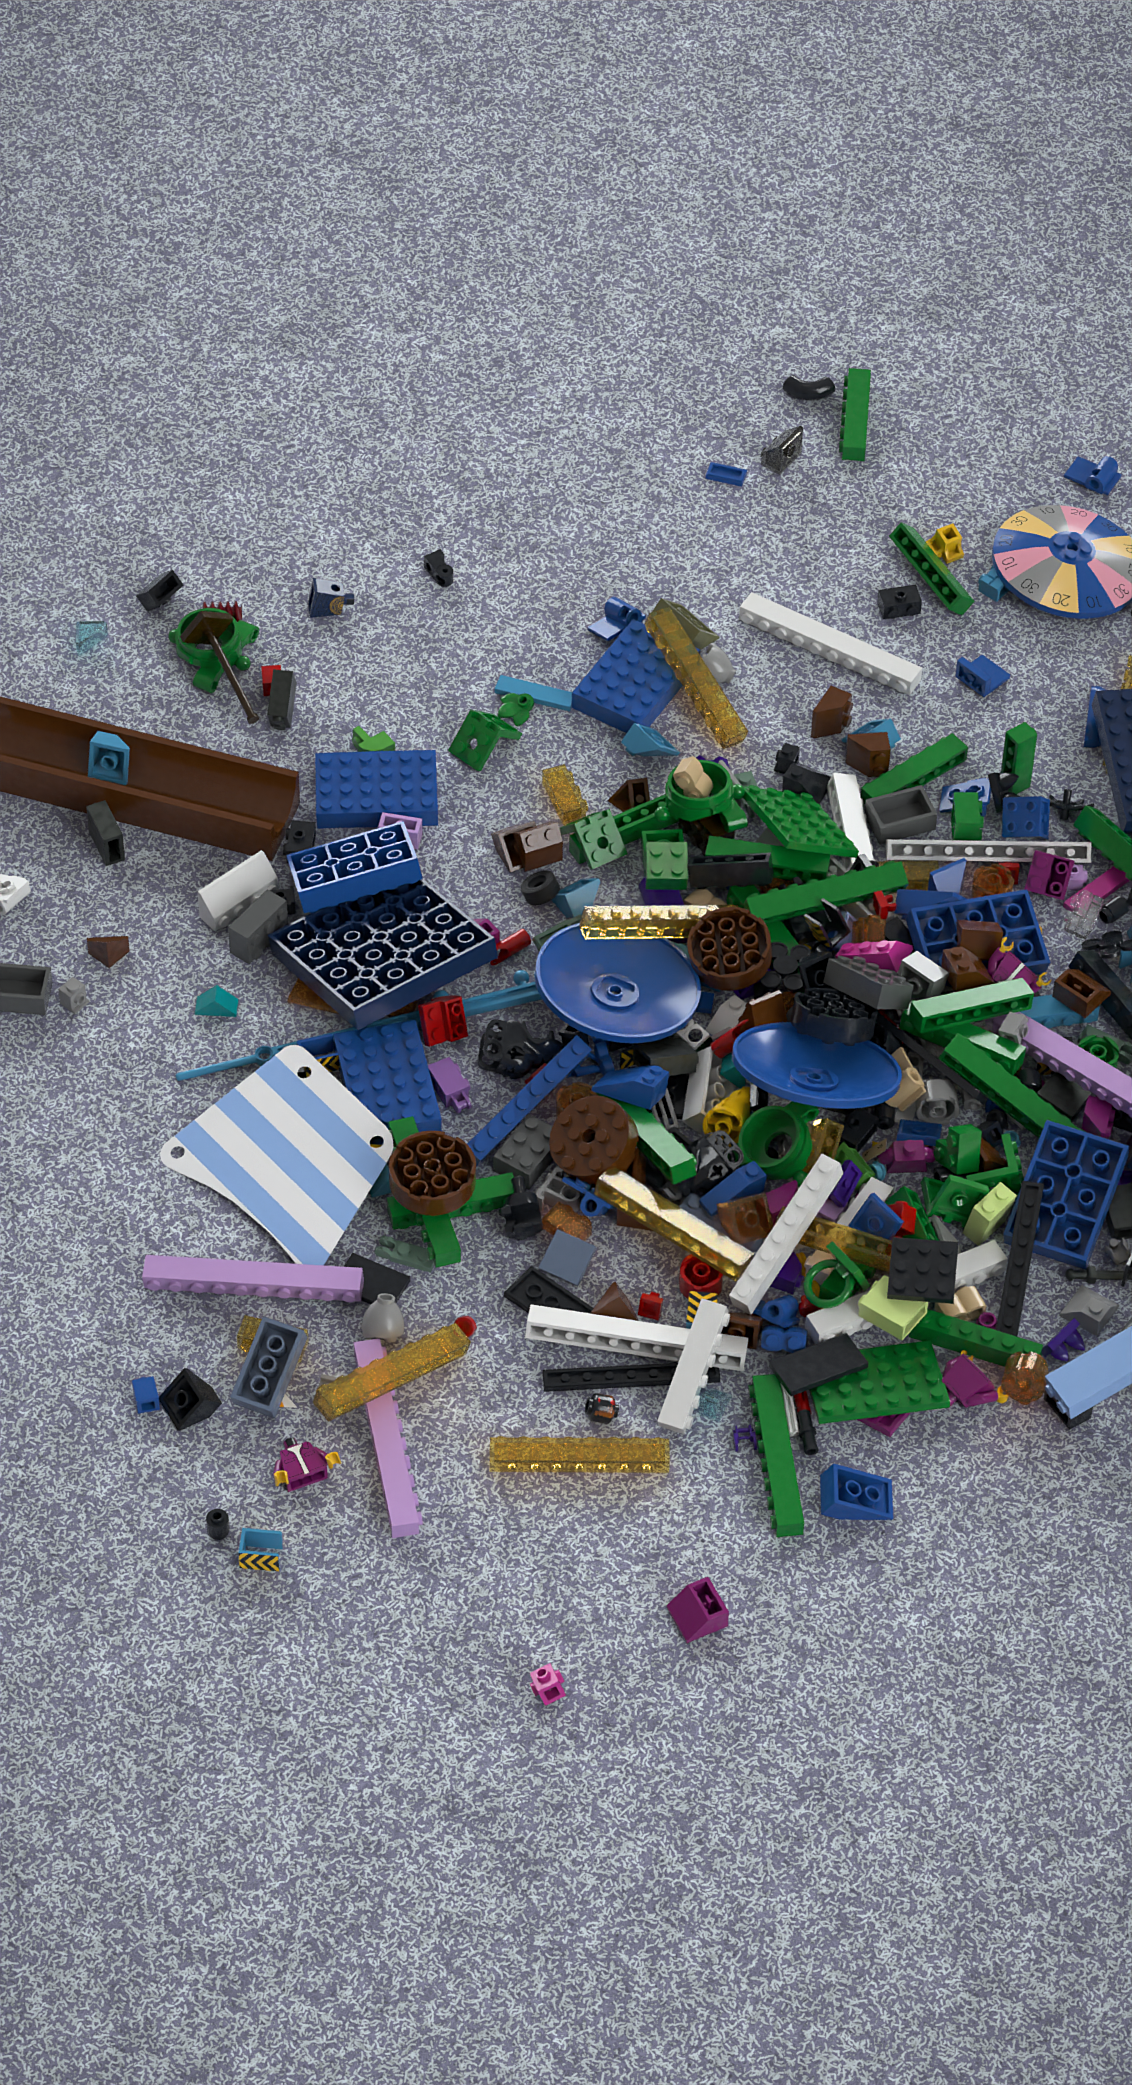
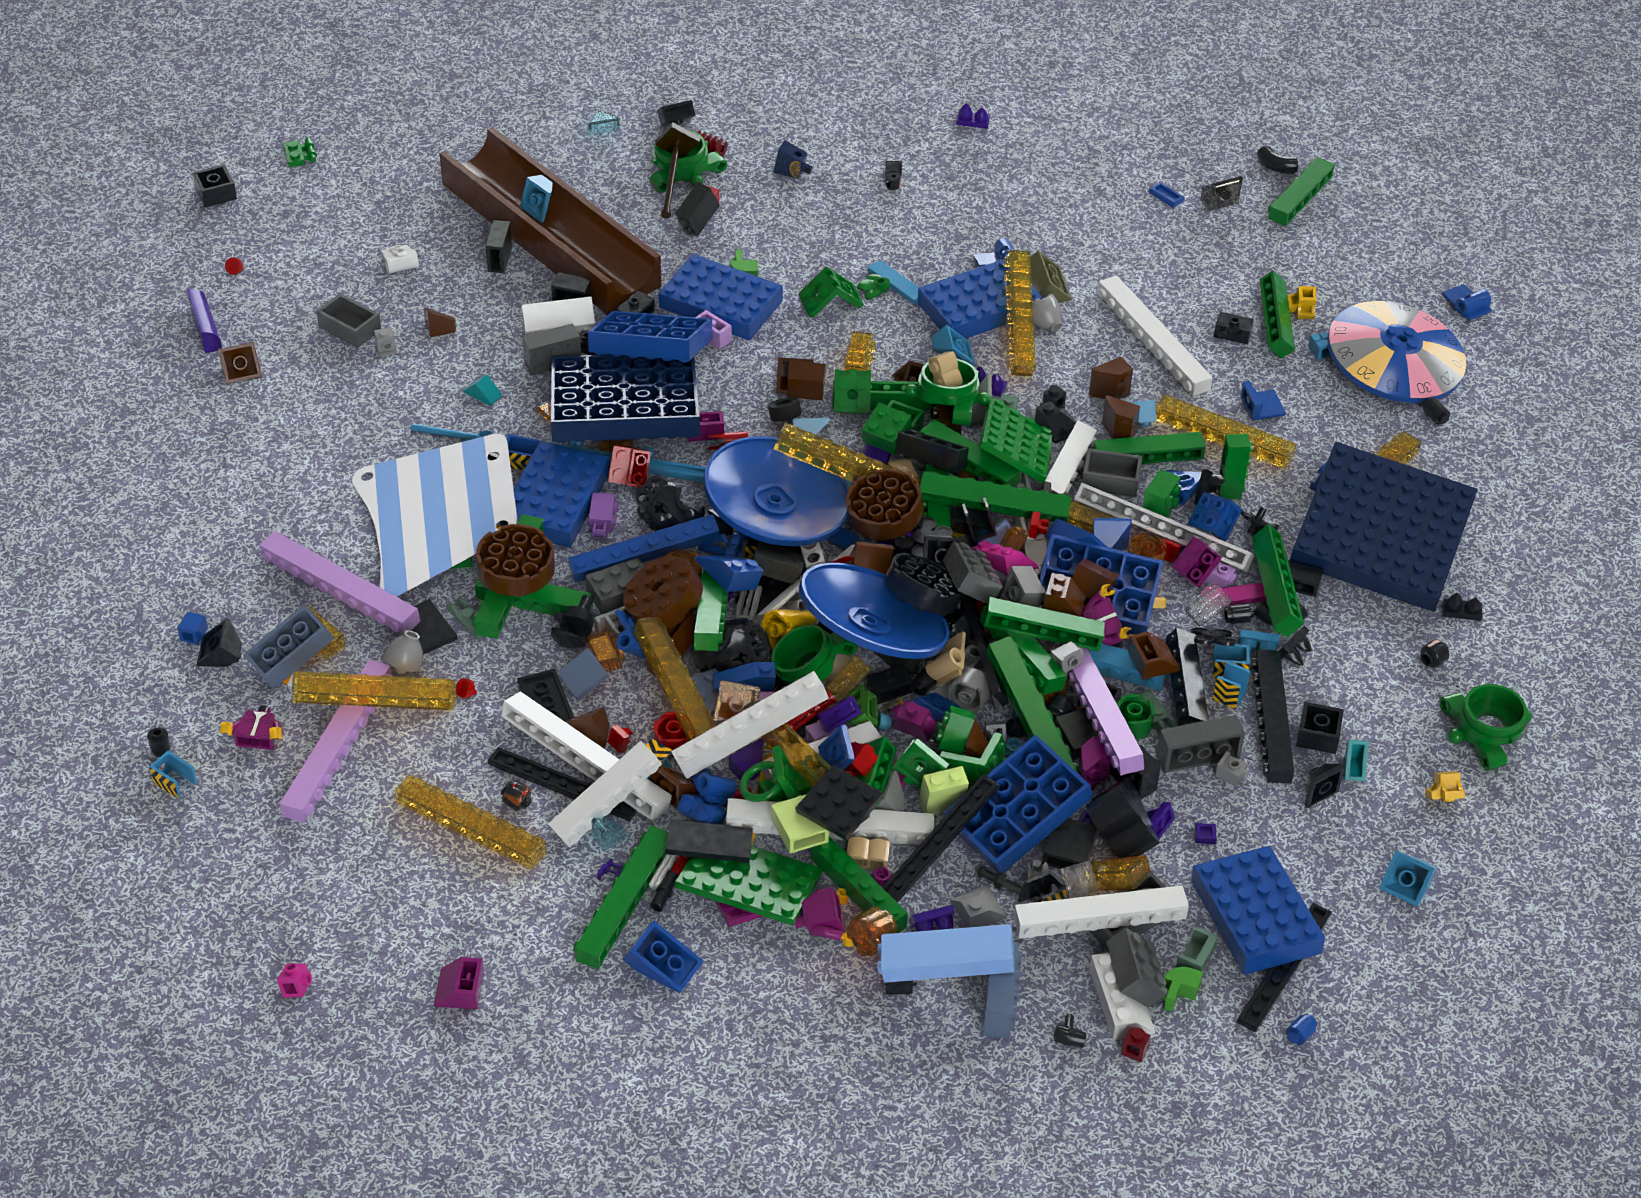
camera: 30 degrees right, 5 degrees down
(225, 852) = (570, 287): none -> black brick
(465, 466) = (968, 118): none -> dark purple tile
(968, 720) = (1214, 427): none -> clear yellow brick

